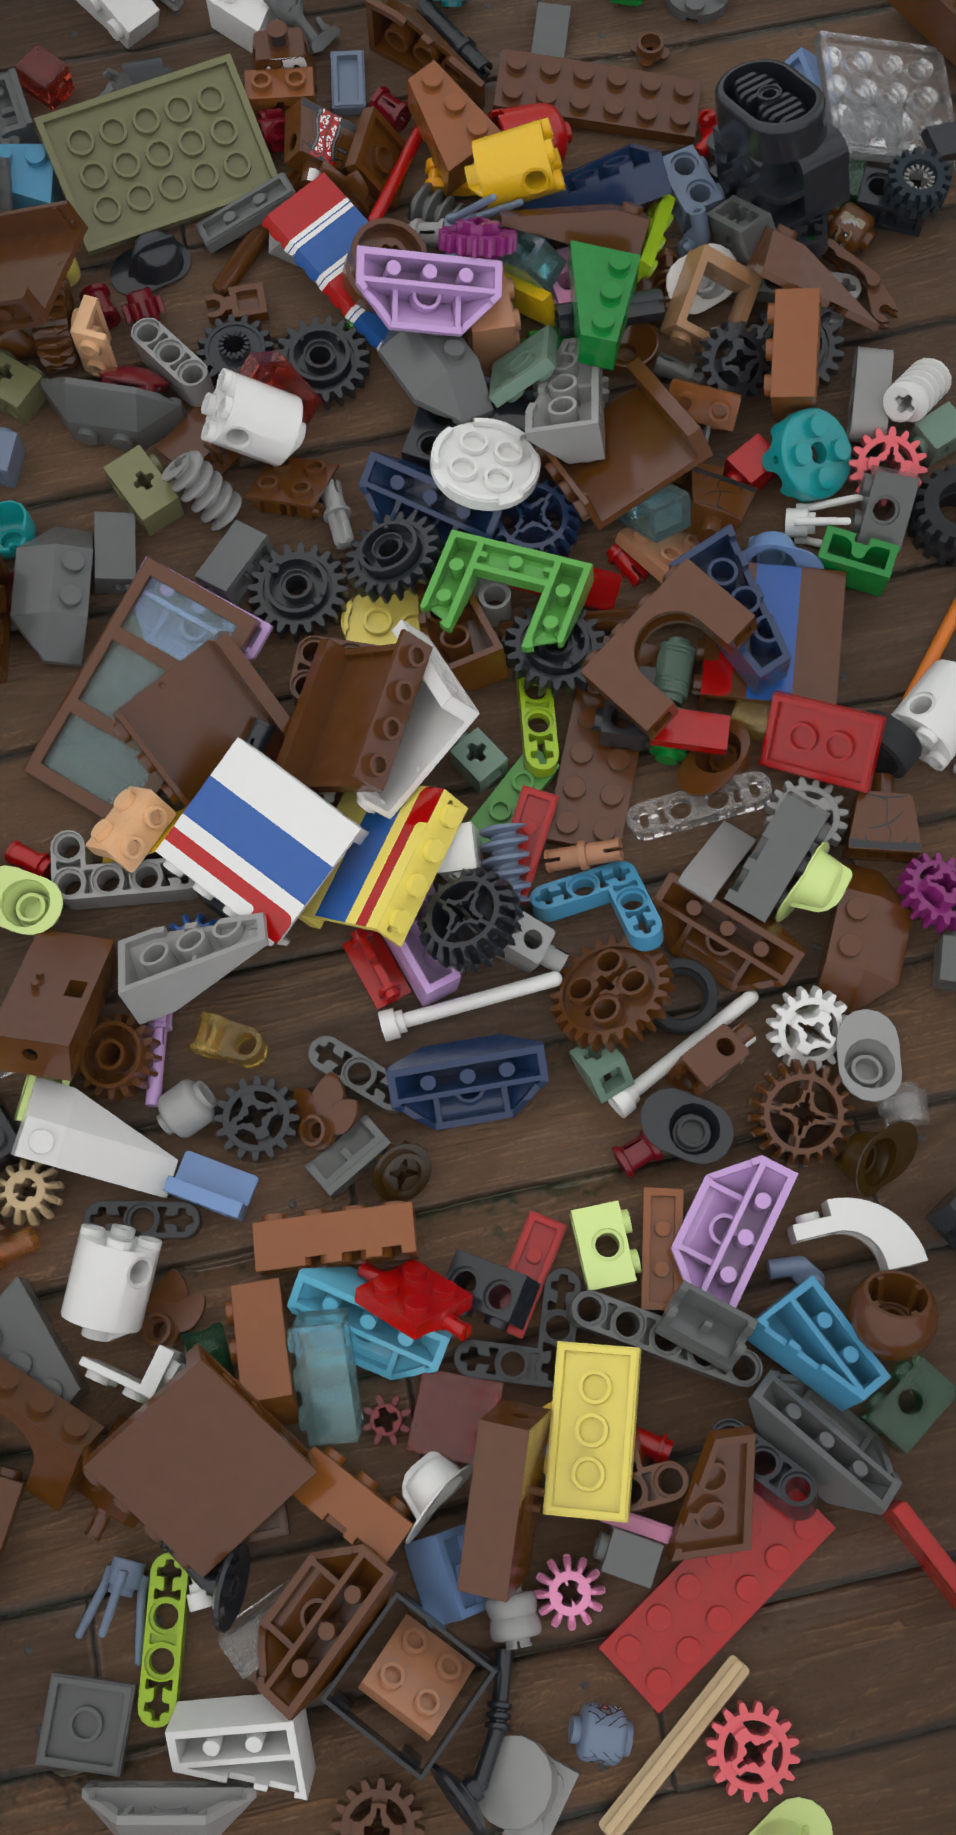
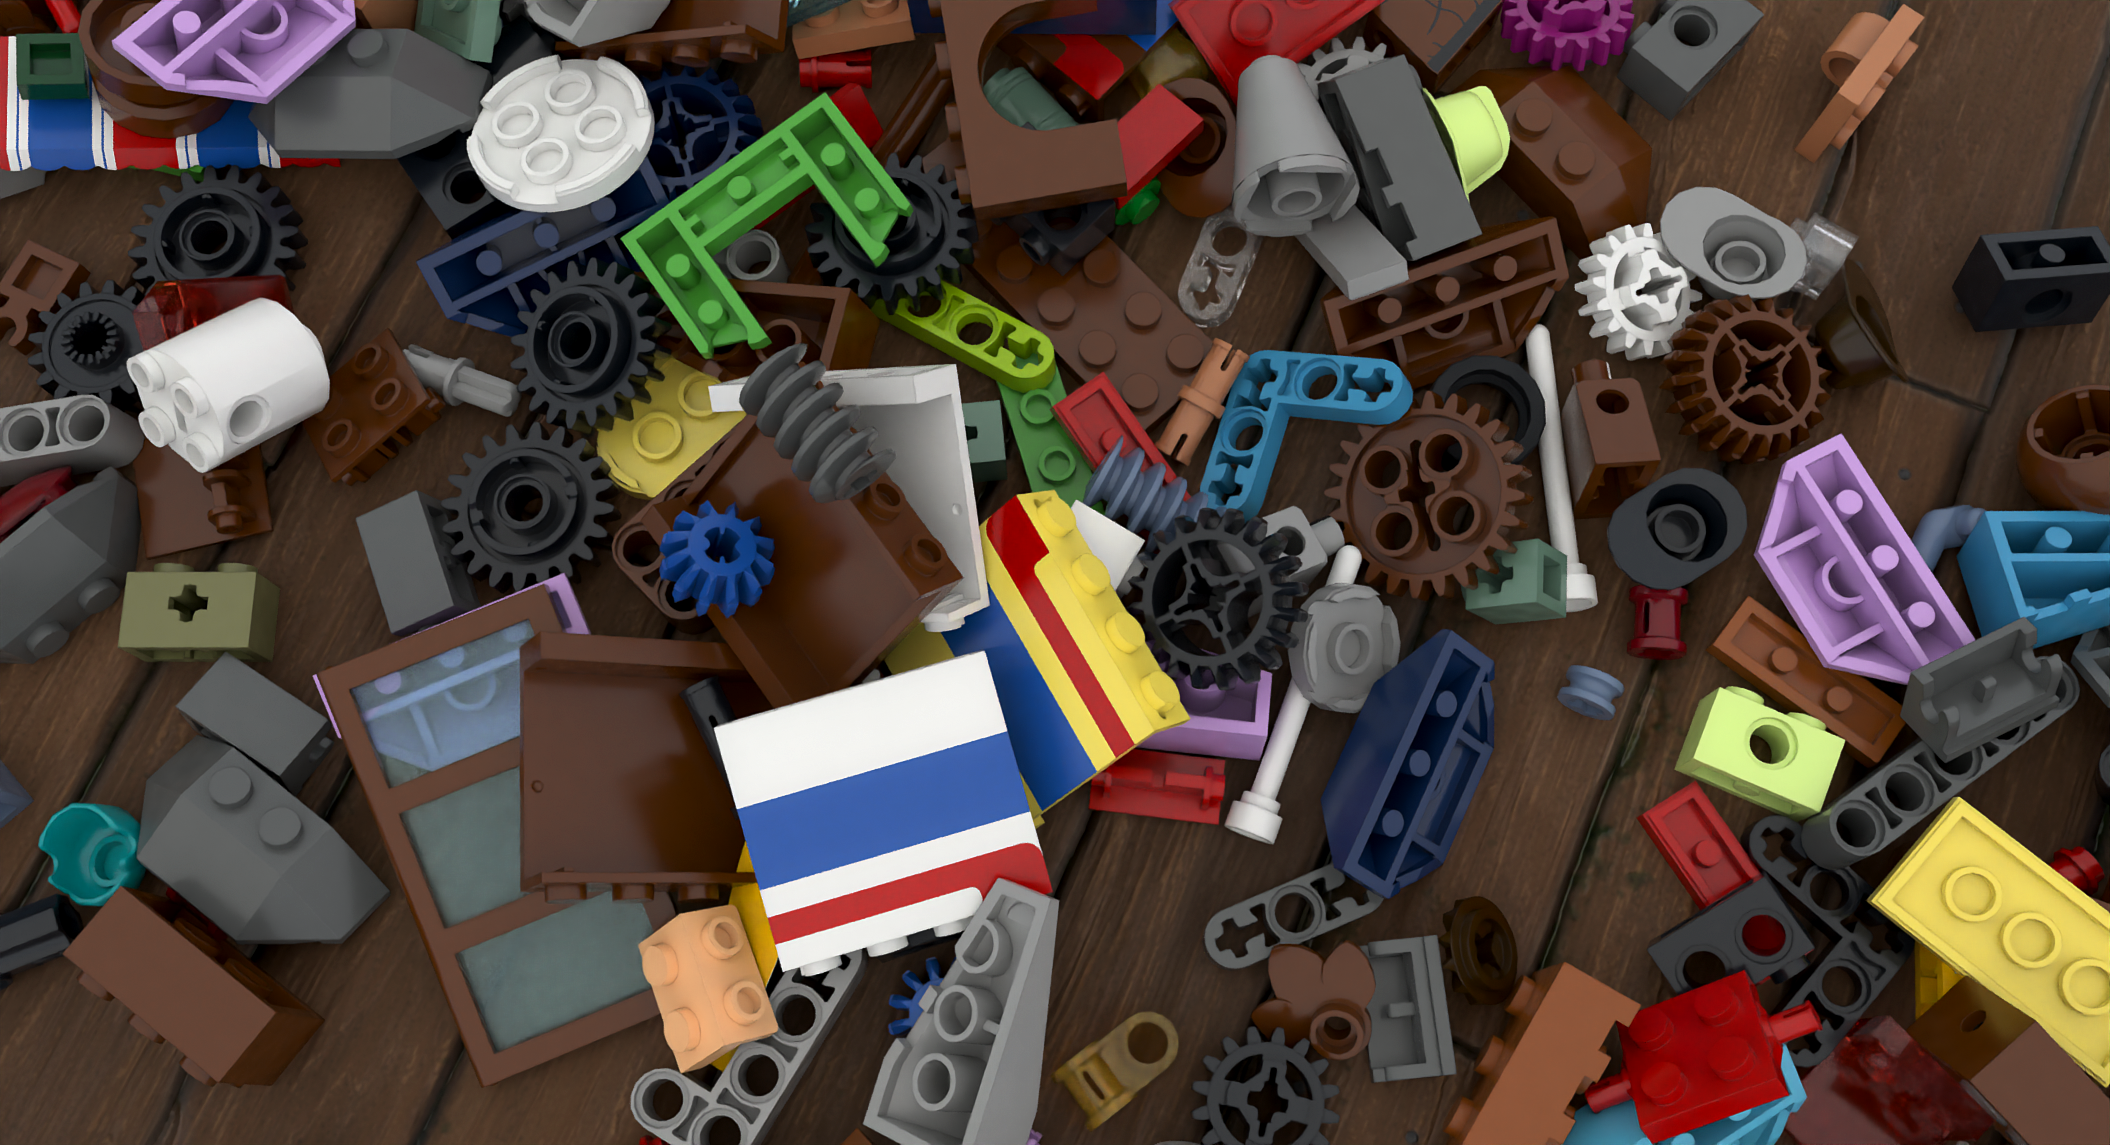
camera: 55 degrees left, 0 degrees up
(205, 486) = (272, 529): light grey piece -> none
(334, 677) = (722, 536): none -> blue gear
(341, 226) = (51, 66): none -> dark green plate
(389, 668) = (810, 428): none -> dark grey piece
(506, 1004) = (1343, 646): none -> light grey tile
(574, 1143) = (1590, 692): none -> sand blue bush
(734, 797) = (1286, 154): none -> light grey cone
(874, 1225) = (1972, 393): white arch -> none

